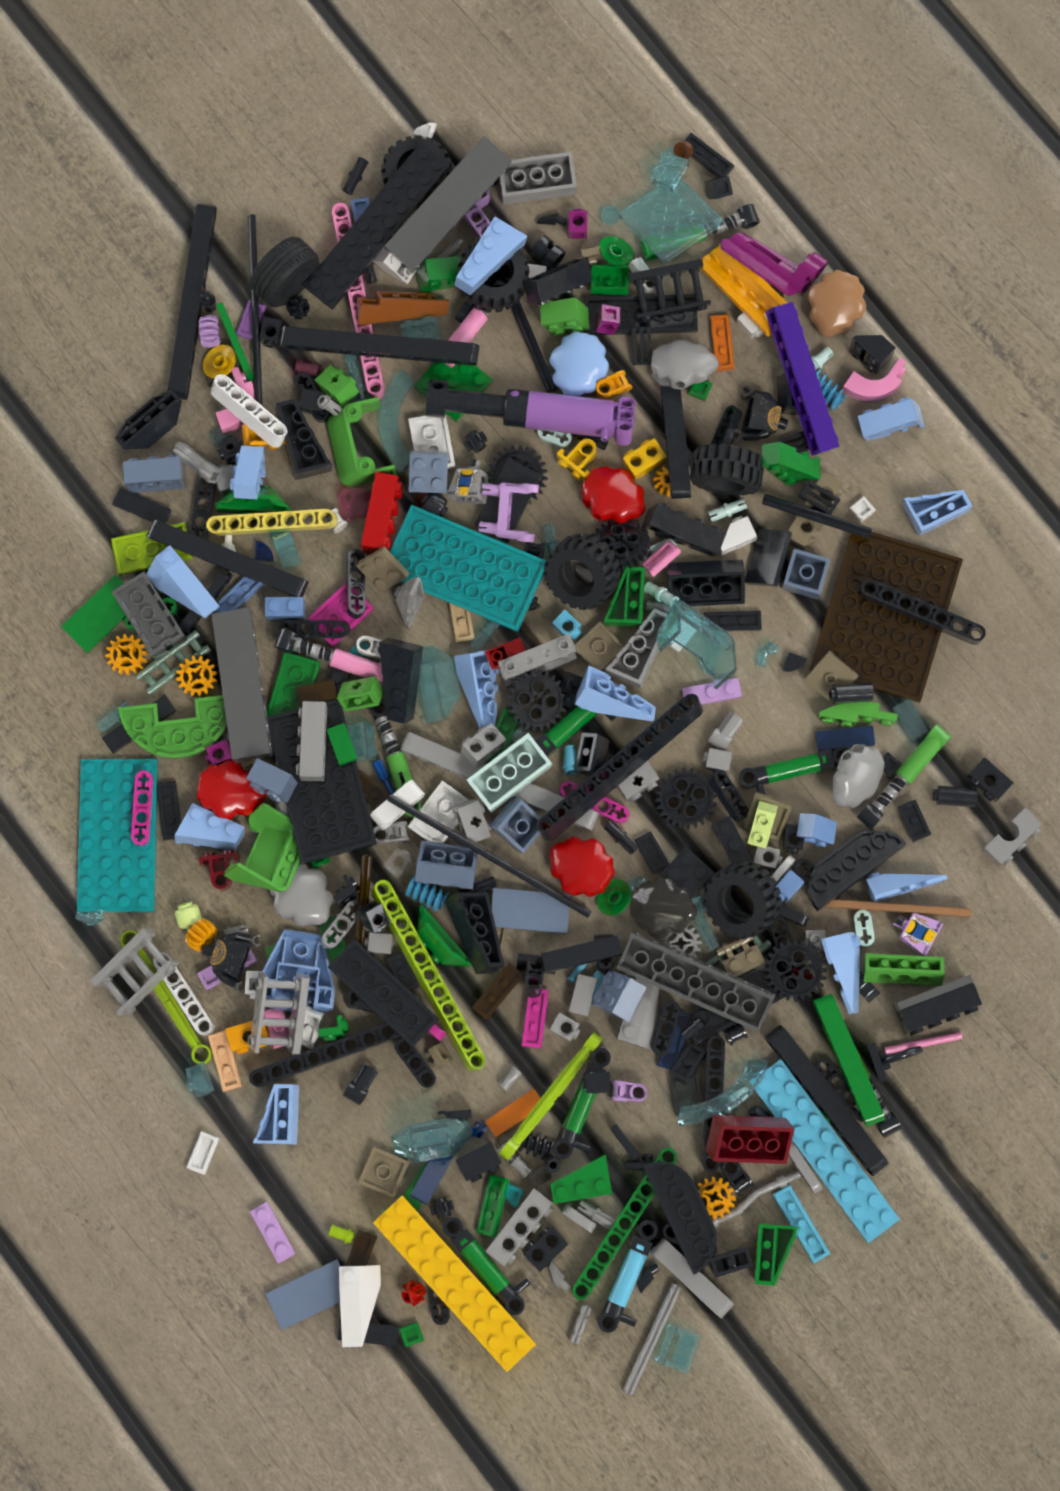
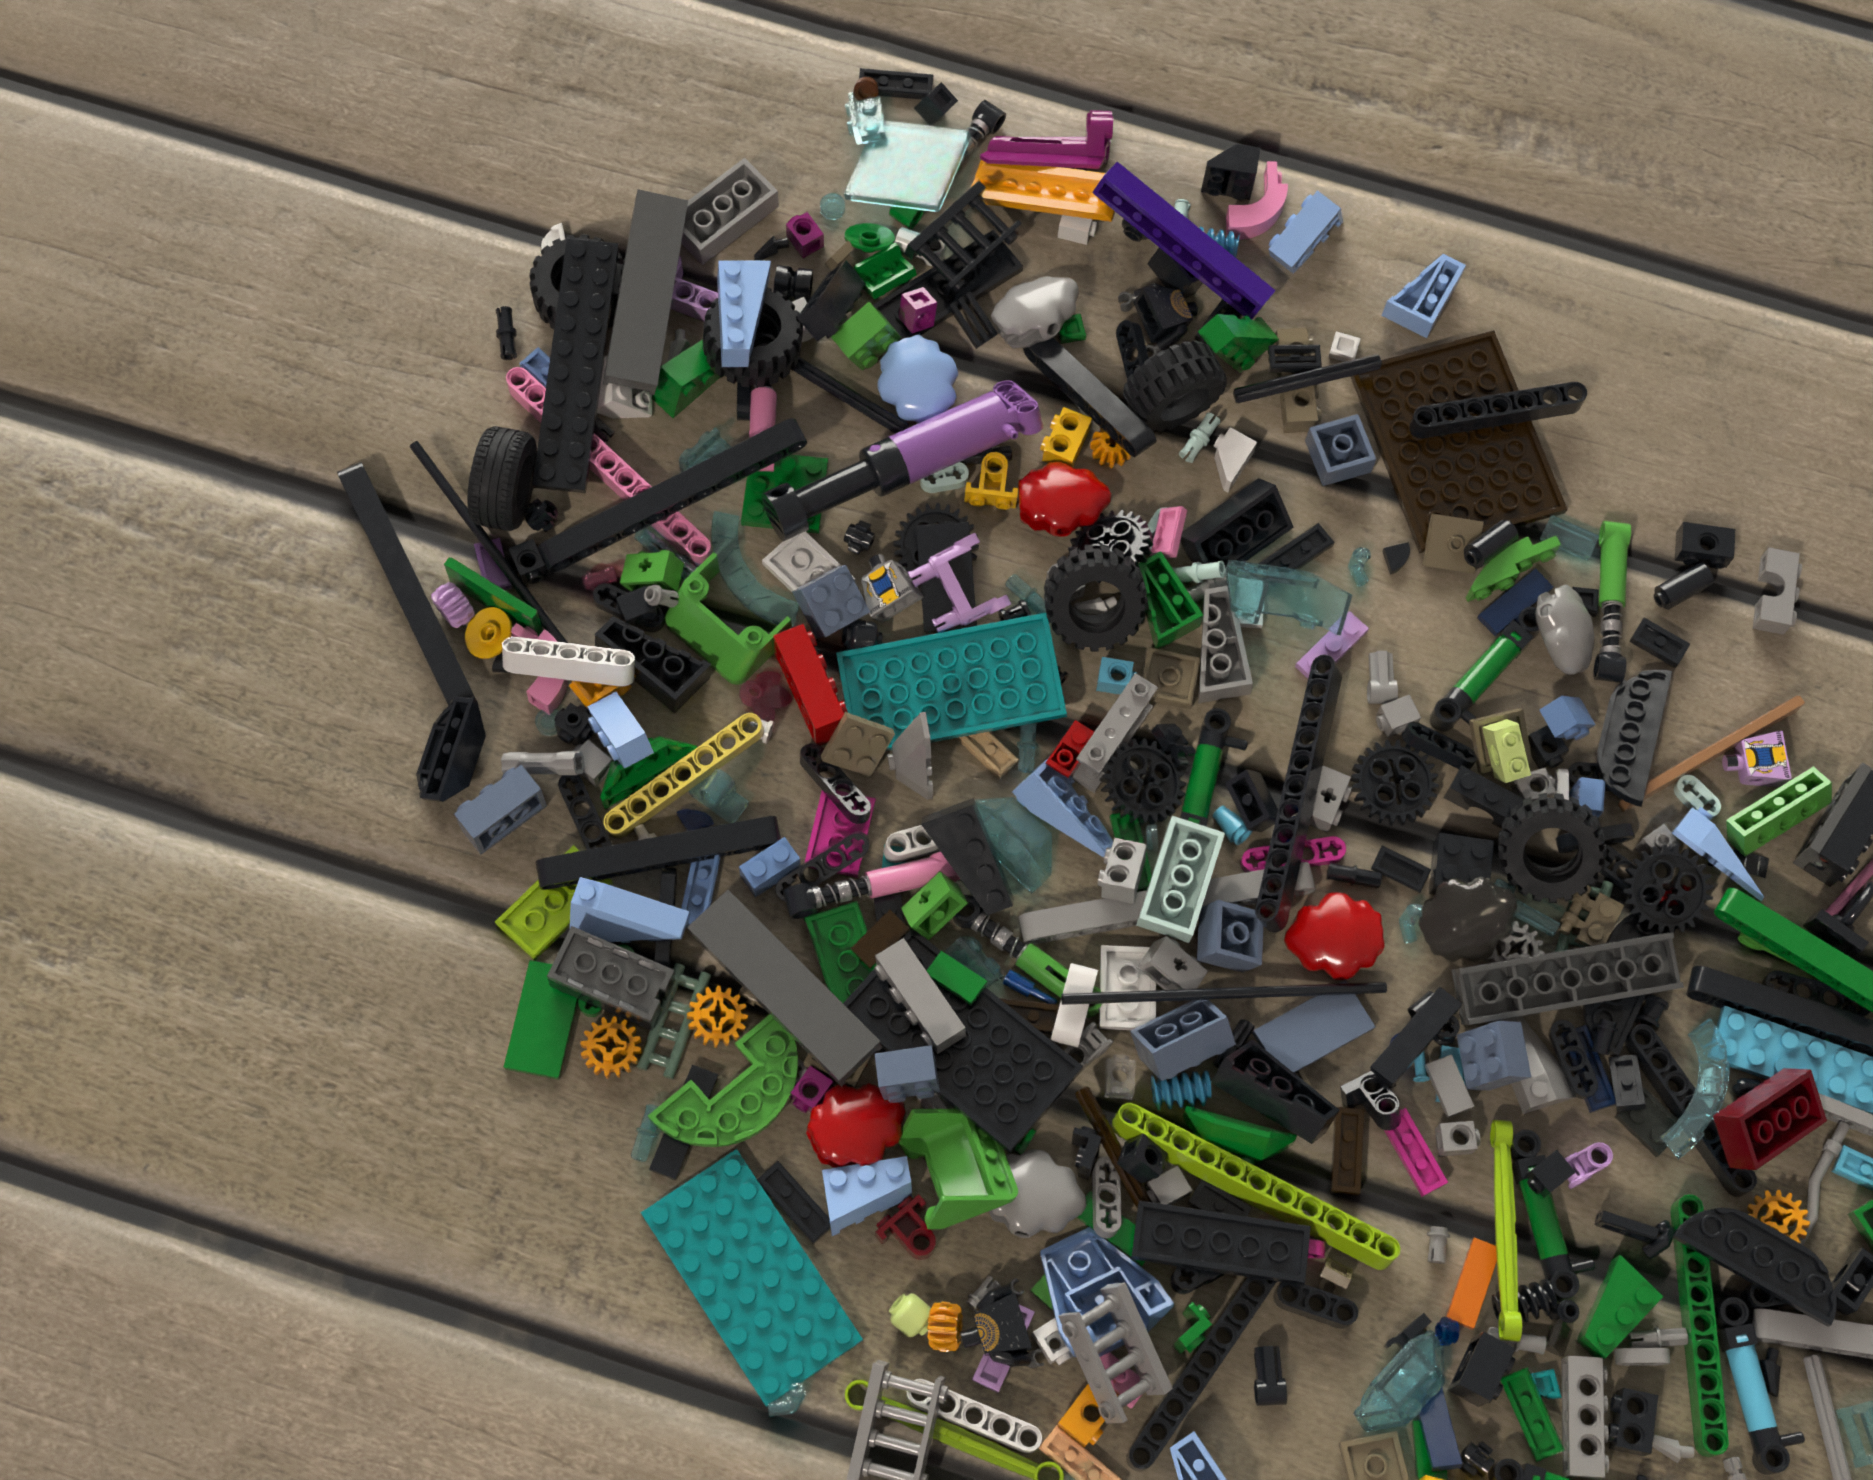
camera: 45 degrees left, 10 degrees down
(139, 808) = (766, 1217): dark pink beam -> none
(141, 507) = (505, 861): black tile -> none
(208, 301) = (427, 571): black axle -> none
(312, 1023) = (1162, 1341): white plate -> none
(399, 306) = (662, 442): dark orange wedge -> none
(604, 696) = (1218, 725): light blue wedge -> none
(616, 384) = (974, 380): light orange piece -> none
(616, 890) = (1396, 936): green dish -> none
(684, 529) = (1168, 486): black wedge -> none
(722, 341) = (1055, 261): orange tile -> none
(737, 1177) = (1782, 1177): black piece -> none
(768, 557) = (1286, 457): black tile -> none
(836, 303) = (1155, 146): medium nougat piece -> none
(890, 885) = (1691, 728): light blue wedge -> none

